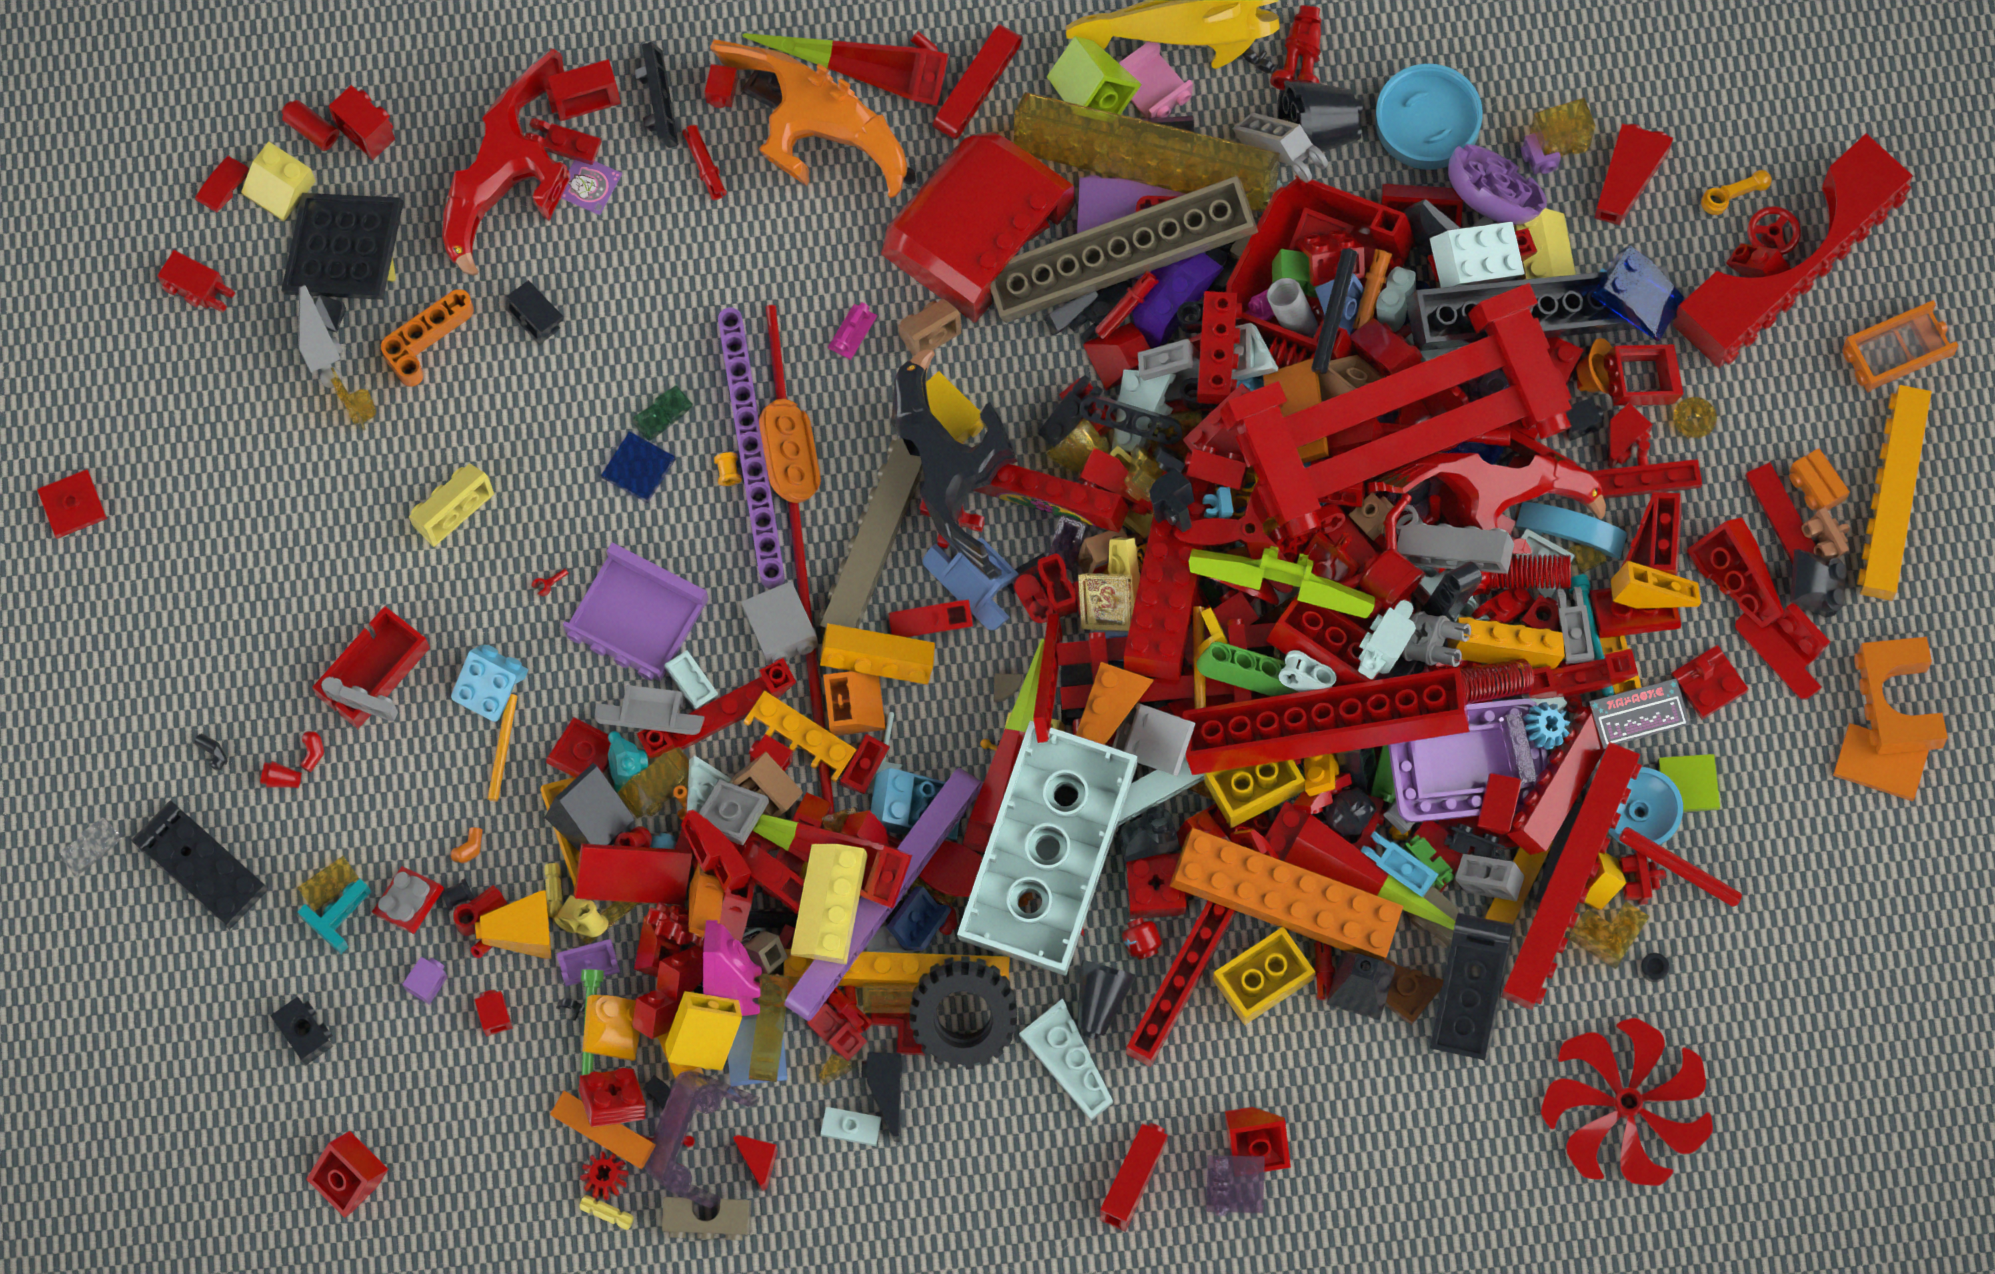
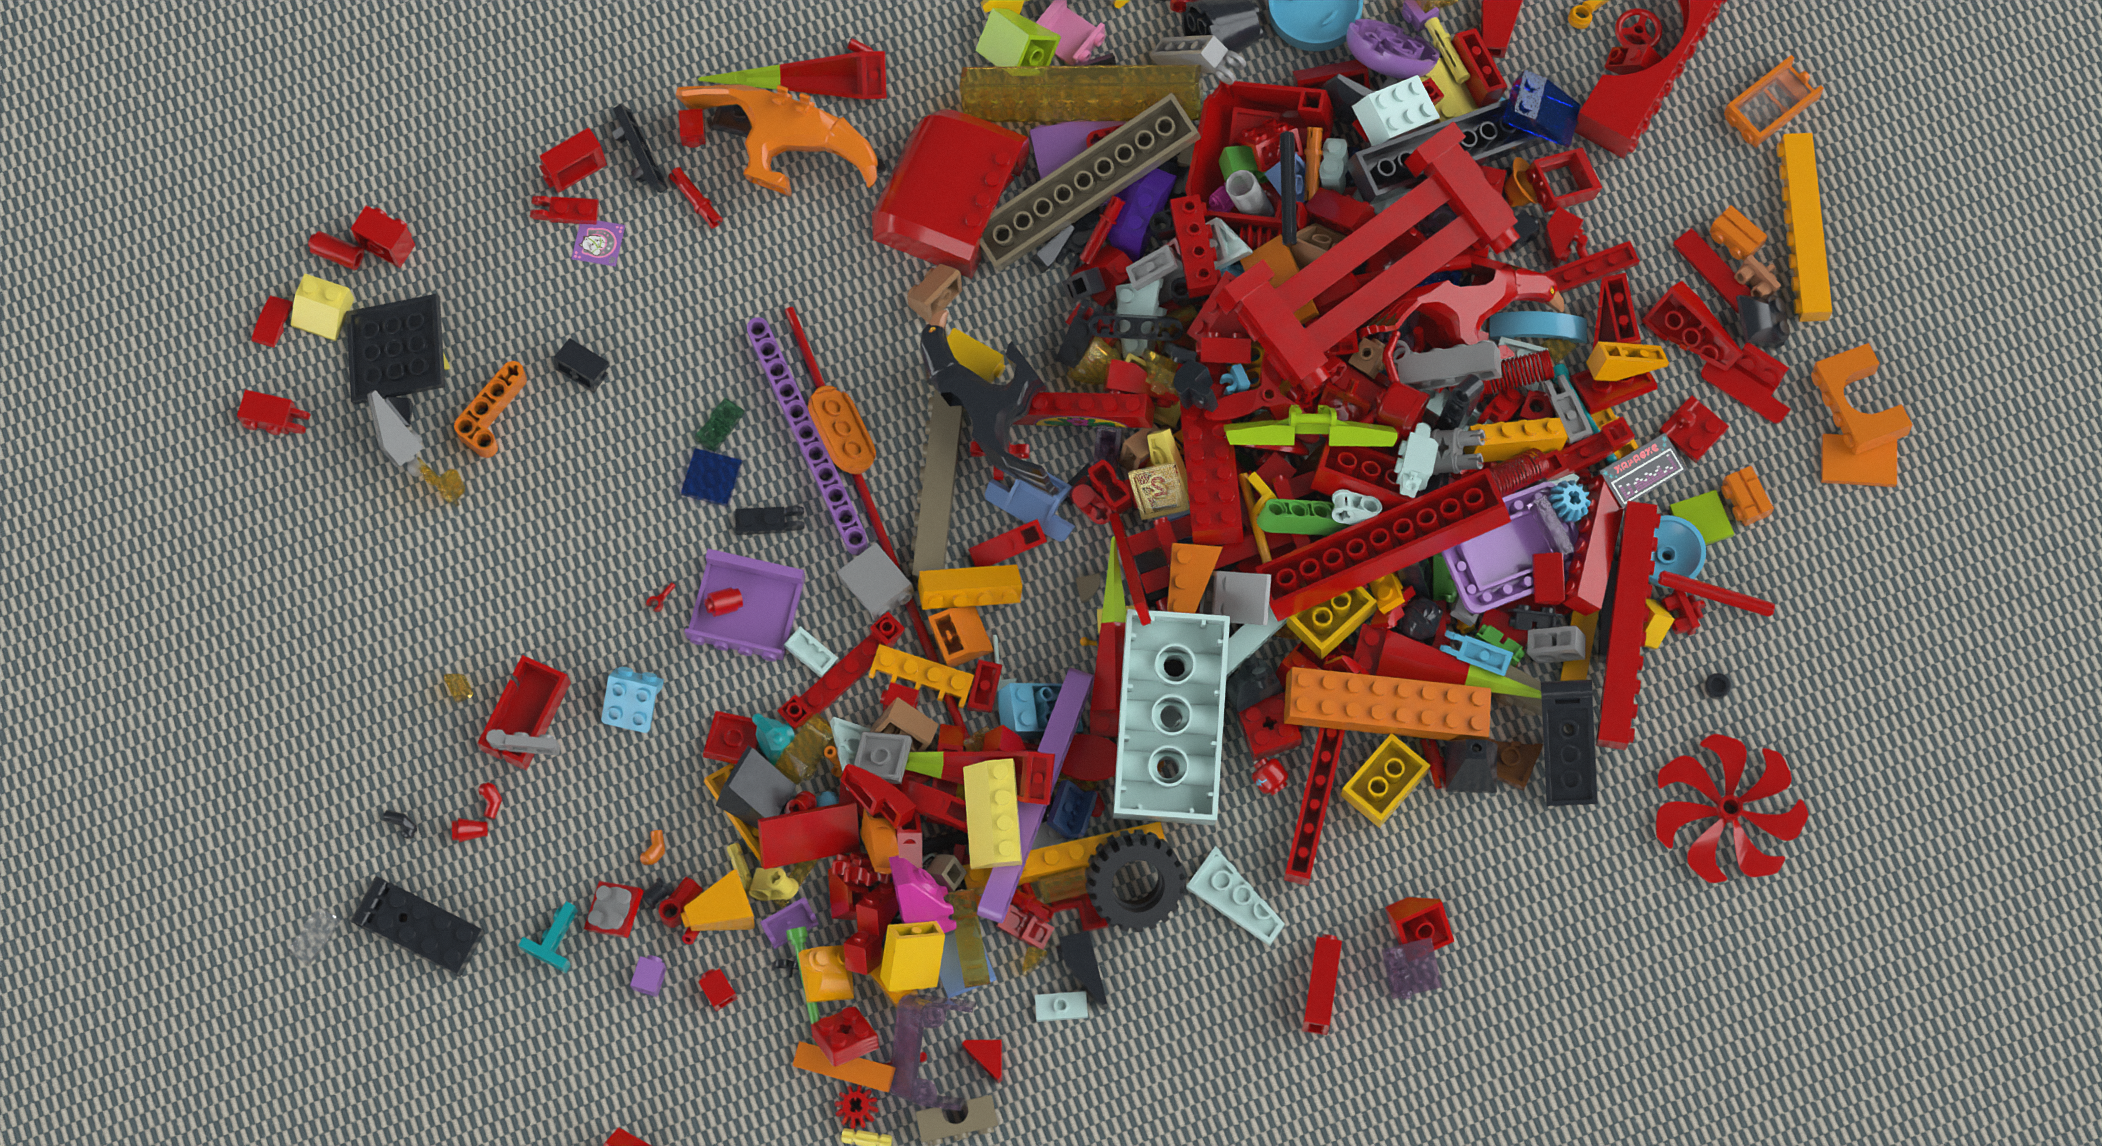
camera: 15 degrees left, 0 degrees up
(72, 504) = (214, 636): red plate -> none
(306, 1046) = (559, 1062): black brick -> none
(311, 622) = (458, 686): none -> clear yellow slope
(328, 883) = (537, 913): clear yellow plate -> none
(451, 504) = (555, 550): light yellow slope -> none
(501, 163) = (518, 240): red animal -> none
(502, 748) = (659, 755): light orange bar -> none
(613, 603) = (723, 601): none -> red brick
(650, 710) = (783, 687): light grey plate -> none
(658, 1091) = (883, 1020): black piece -> none
(684, 527) = (767, 520): none -> black hinge
(727, 469) = (791, 459): light orange bush -> none
(853, 330) = (867, 311): dark pink hinge -> none
(977, 82) = (916, 69): red beam -> none
(1091, 360) = (1084, 285): none -> black brick
(1100, 997) = (1248, 835): black cone -> none
(1554, 191) = (1447, 49): none -> light yellow pin
(1584, 229) = (1485, 79): none -> red brick
(1609, 940) = (1672, 672): clear yellow brick -> none
(1702, 409) = (1619, 196): clear yellow gear -> none
(1745, 769) = (1747, 496): none -> orange brick

